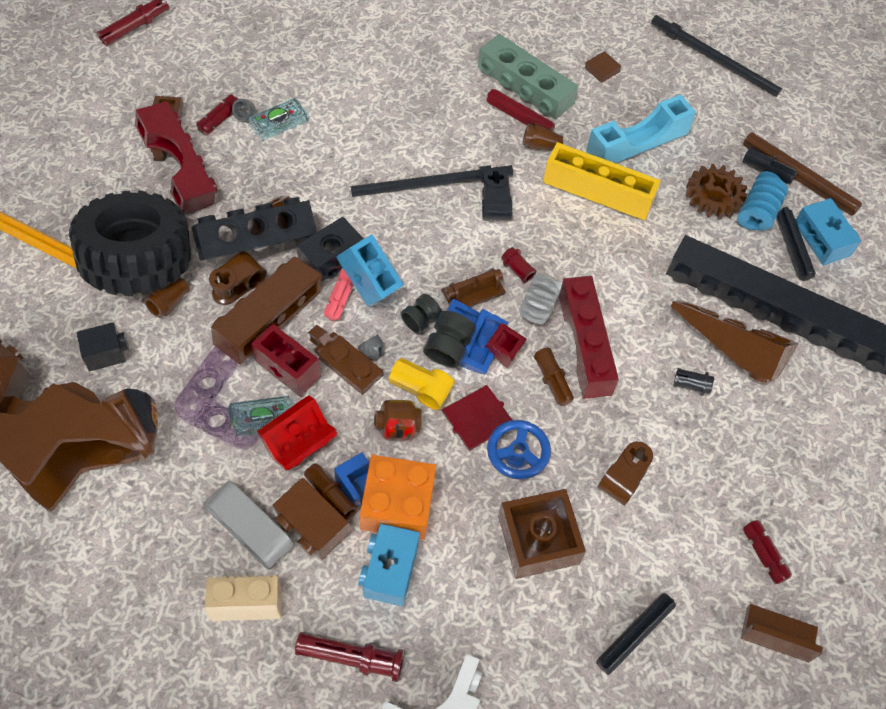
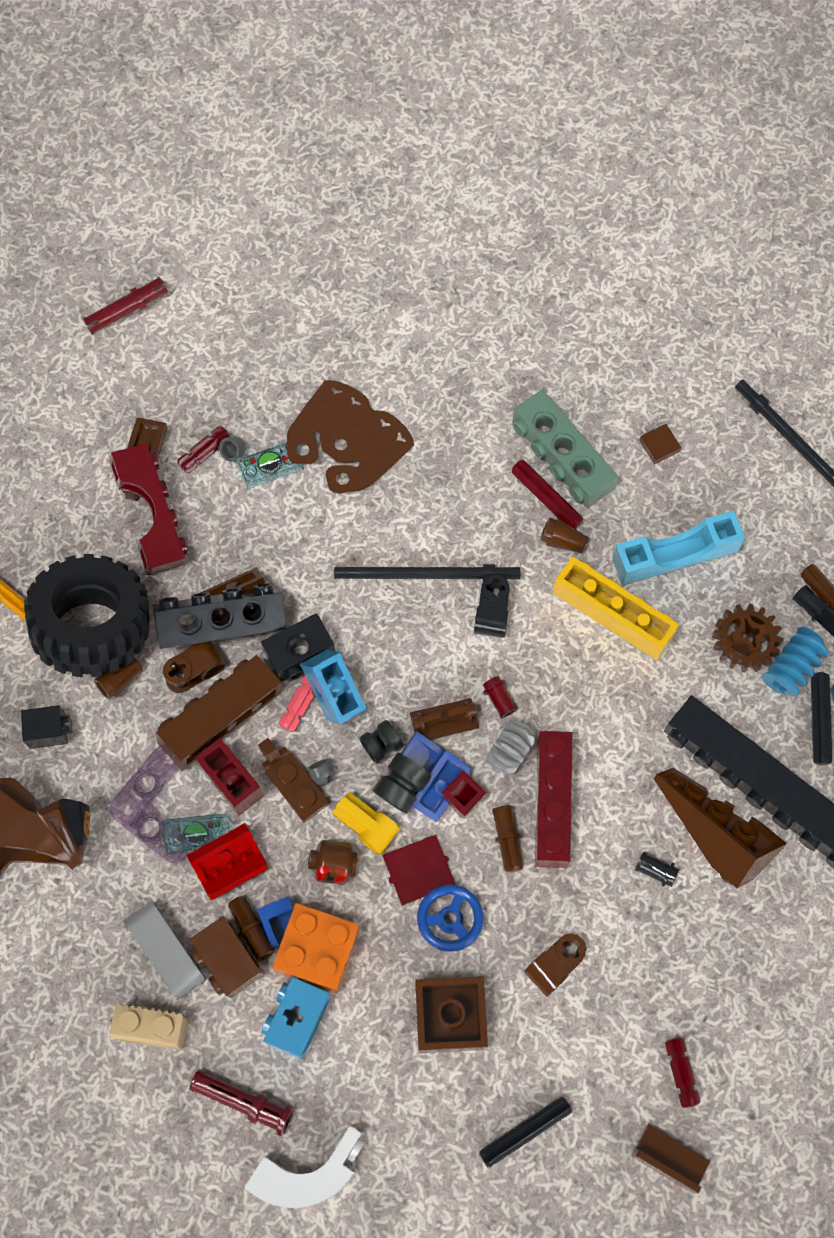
camera: 15 degrees right, 10 degrees up
(352, 84) = (358, 425): none -> reddish brown piece

